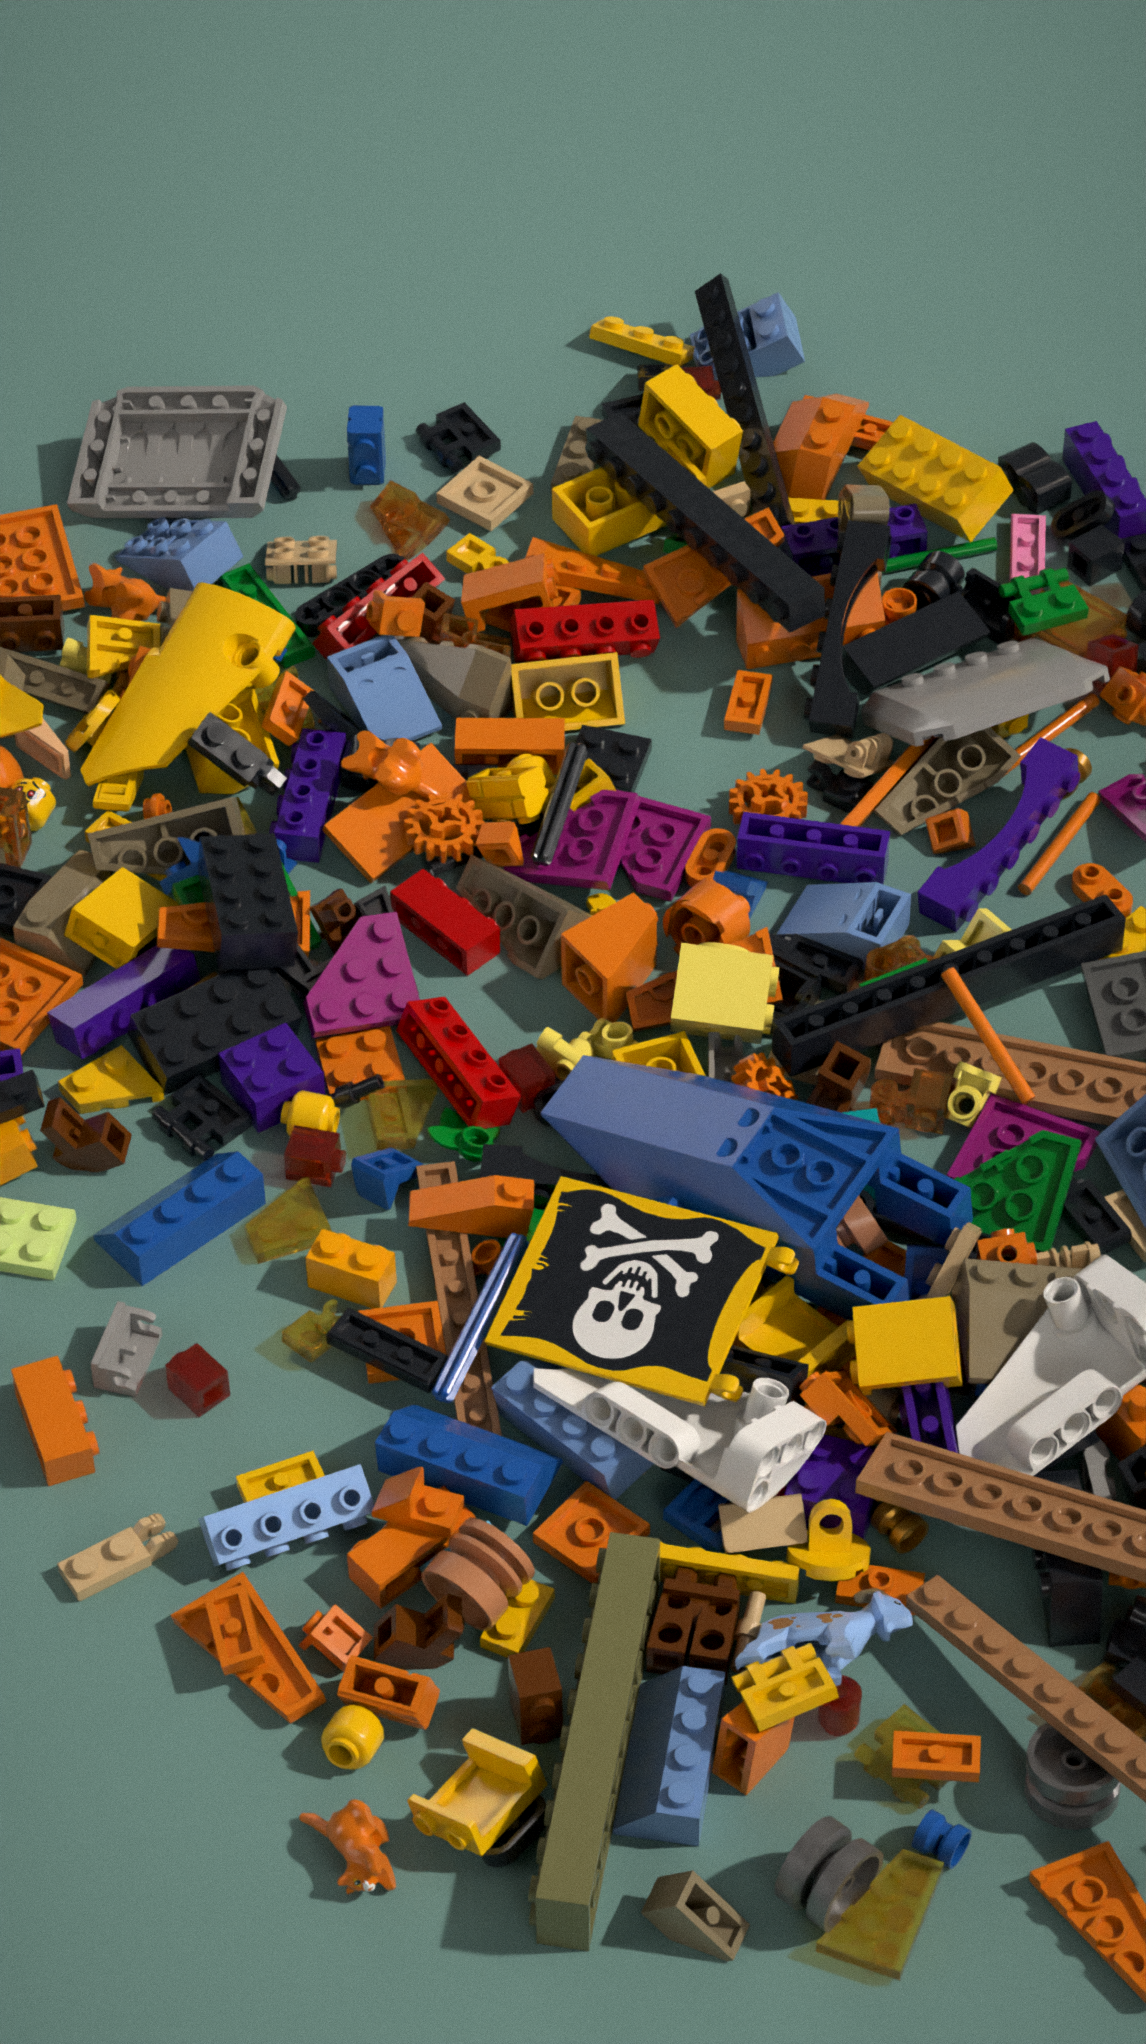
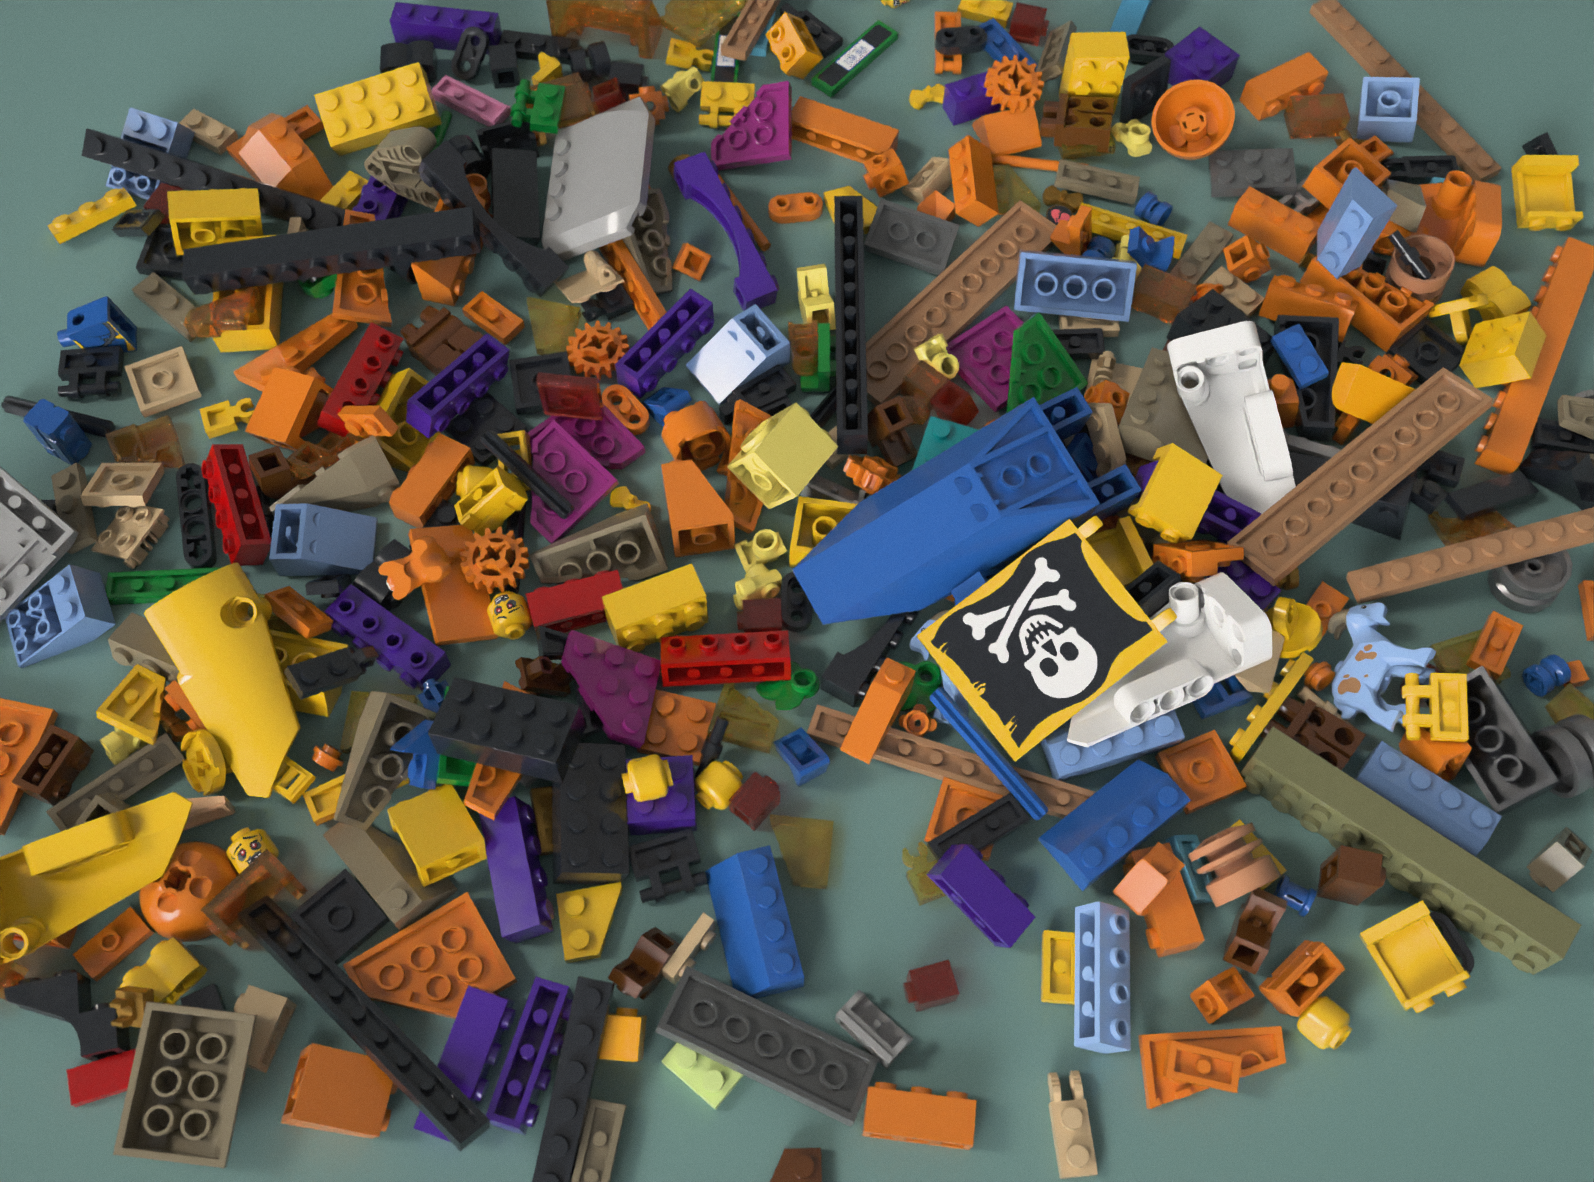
camera: 65 degrees left, 15 degrees up
(56, 1261) = (768, 1046): none -> dark grey plate
(123, 1169) = (698, 938): none -> tan plate
(124, 596) = (81, 675): orange animal -> none
(267, 1035) = (647, 778): none -> yellow head
(300, 504) = (67, 488): none -> dark tan plate
(314, 1371) = (982, 895): none -> dark purple brick
(346, 521) = (122, 484): none -> tan plate
(351, 1269) = (882, 823): light orange brick -> none
(358, 1838) = (1415, 1061): orange animal -> none
(394, 443) = (87, 423): none -> black axle
(394, 868) = (509, 614): none -> yellow head
(395, 615) = (267, 493): orange bracket -> none
(475, 977) = (656, 608): none -> yellow brick
(489, 1667) = (1296, 895): none -> blue bush
(500, 844) = (537, 530): orange slope -> none
(509, 414) = (99, 325): none -> blue torso
(519, 645) = (367, 421): none -> orange plate
(575, 484) = (222, 314): none -> clear orange slope
(630, 704) = (457, 386): none -> dark purple brick
(672, 791) = (570, 396): none -> clear red plate
(683, 676) = (438, 339): none -> reddish brown hips
(693, 776) = (524, 377): none -> black plate
(777, 750) = (552, 324): none -> clear yellow wing
(786, 1601) = (1318, 676): none -> orange plate
(796, 1783) = (1503, 752): none -> black brick
(817, 370) = (209, 131): none -> tan plate
(917, 1129) = (954, 404): none -> clear red brick
(967, 1874) = (1579, 675): none -> orange piece
(988, 1035) = (910, 320): orange bar -> none
(1114, 593) = (549, 69): none -> yellow bracket

